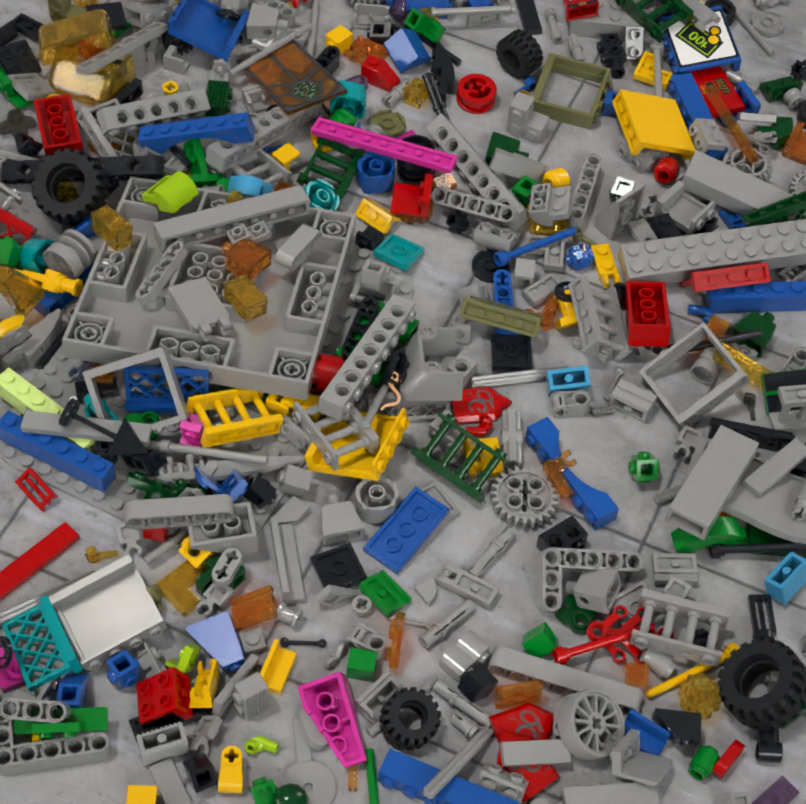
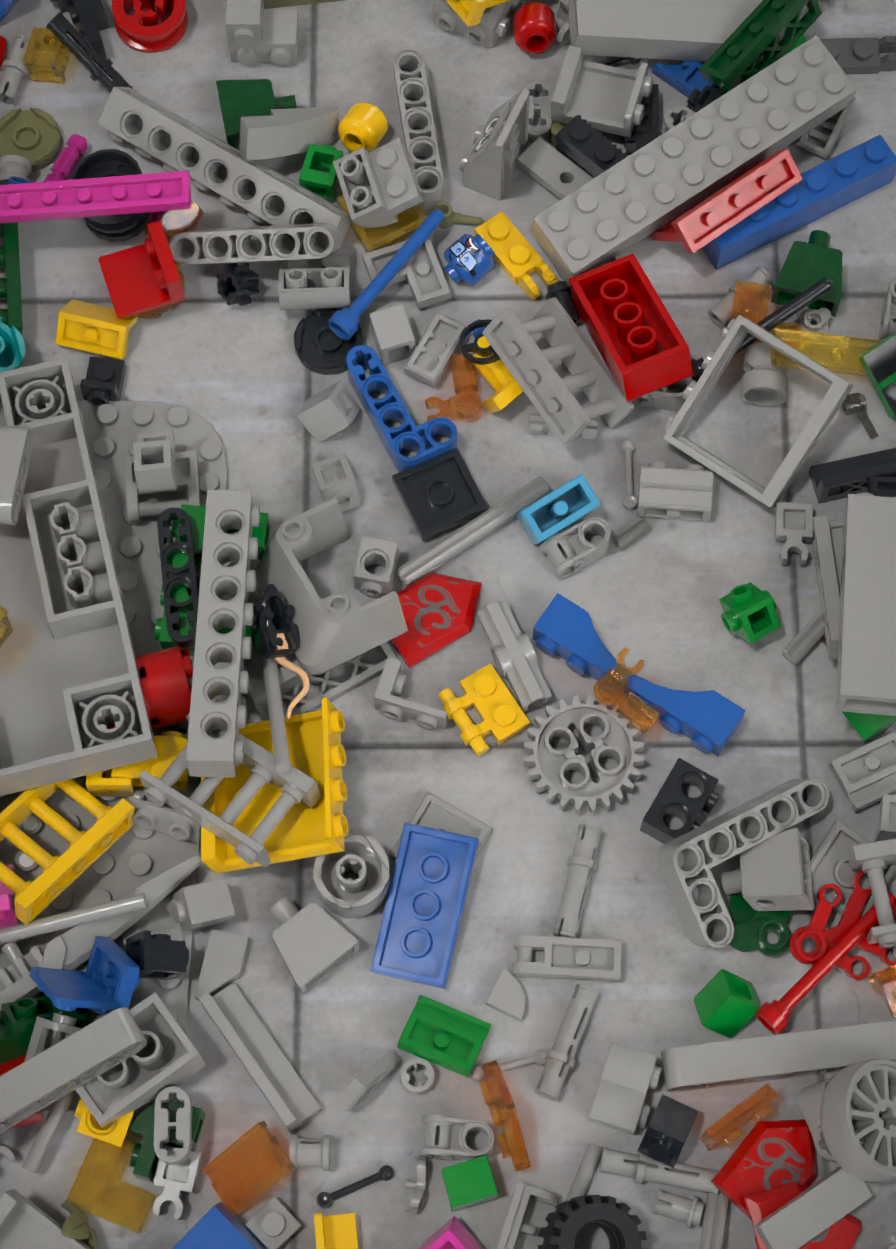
camera: 20 degrees left, 15 degrees up
(338, 567) = (349, 1028): black plate -> none
(375, 173) = (55, 252): blue brick -> none
(398, 252) = (165, 385): teal plate -> none
(458, 477) = (427, 763): dark green fence -> none
(482, 429) = (457, 659): red arm -> none
(501, 315) = (398, 439): olive fence -> none
(620, 188) = (478, 98): bracket -> none
(701, 311) = (709, 272): blue arm -> none

